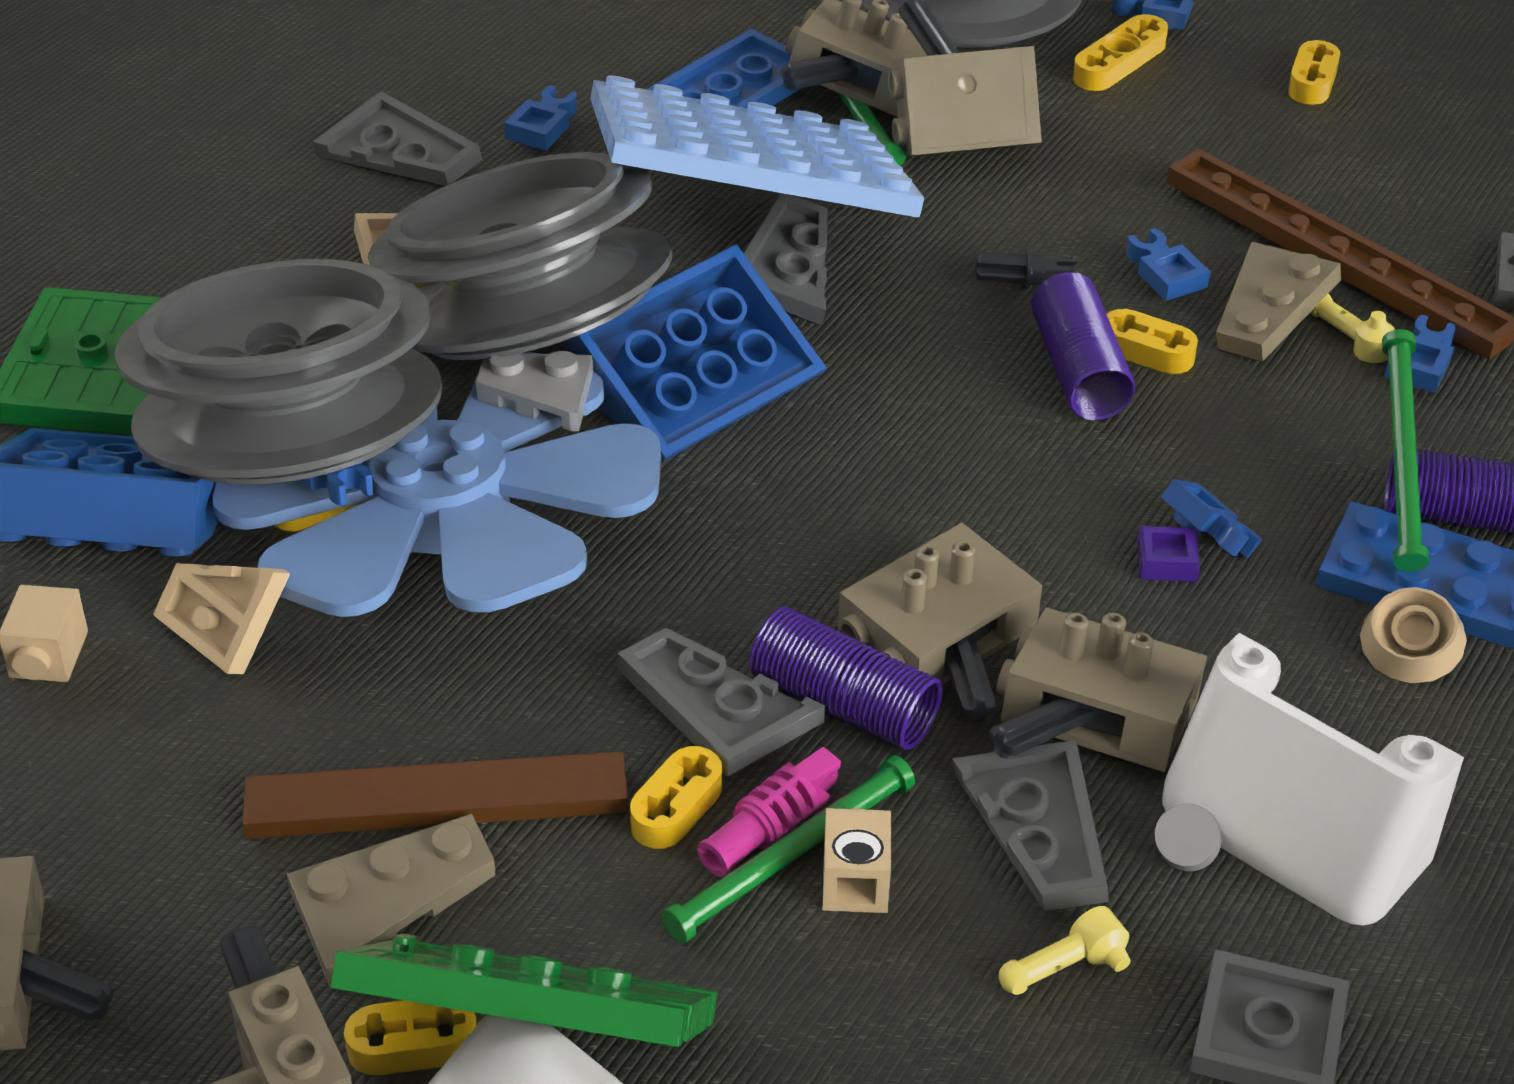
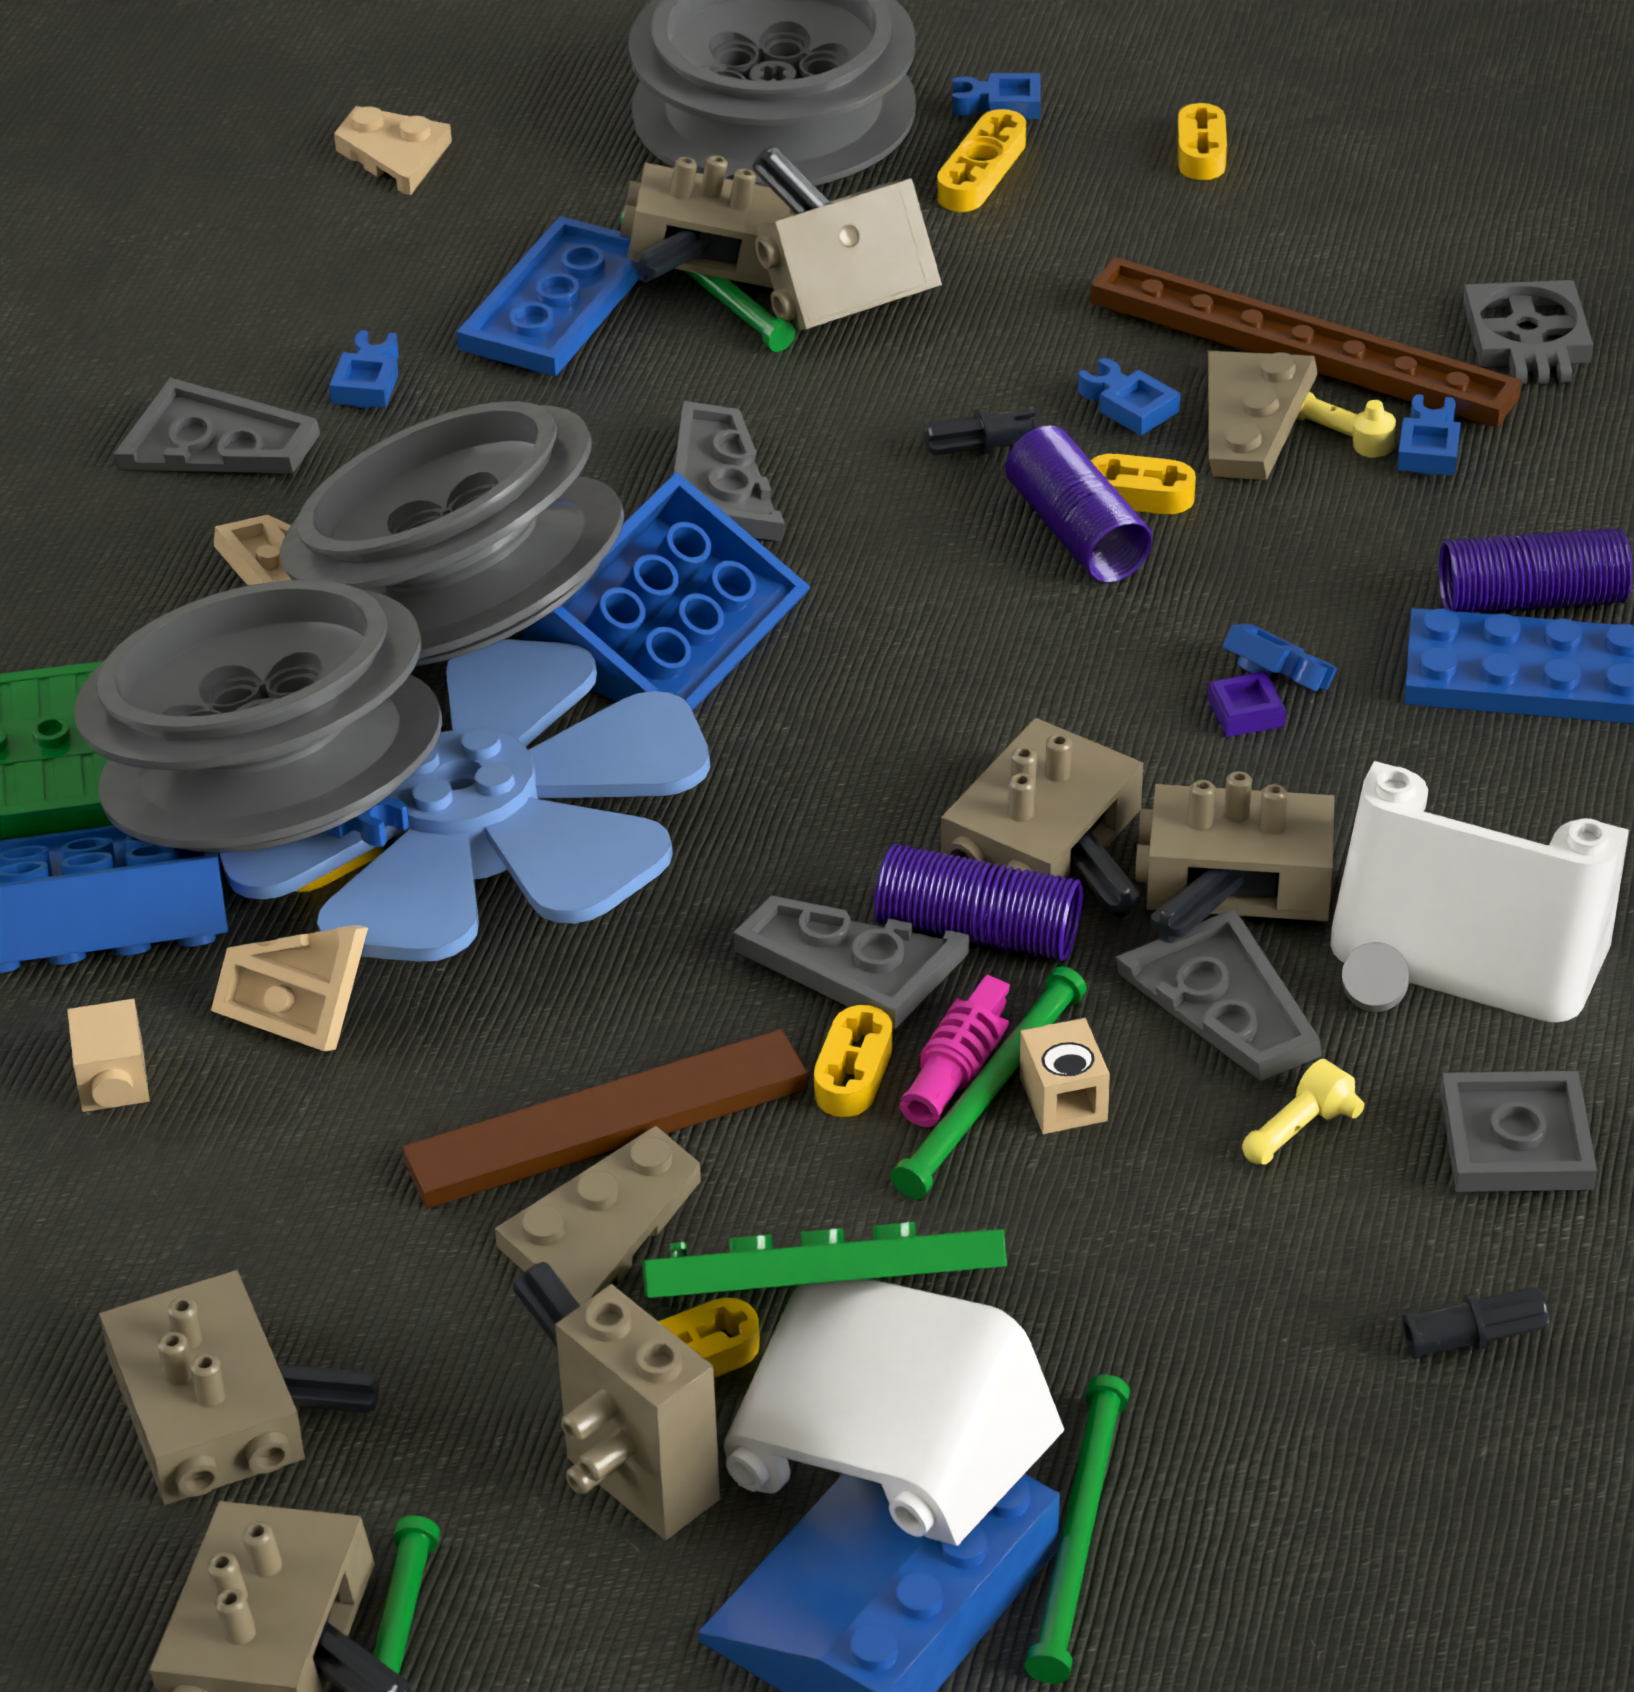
camera: 15 degrees left, 0 degrees up
(536, 383) = (524, 671): light grey wing -> none
(750, 146) = (646, 357): light blue plate -> none
(1410, 553) = (1495, 648): green bar -> none
(1413, 636) = (1520, 730): tan hat -> none

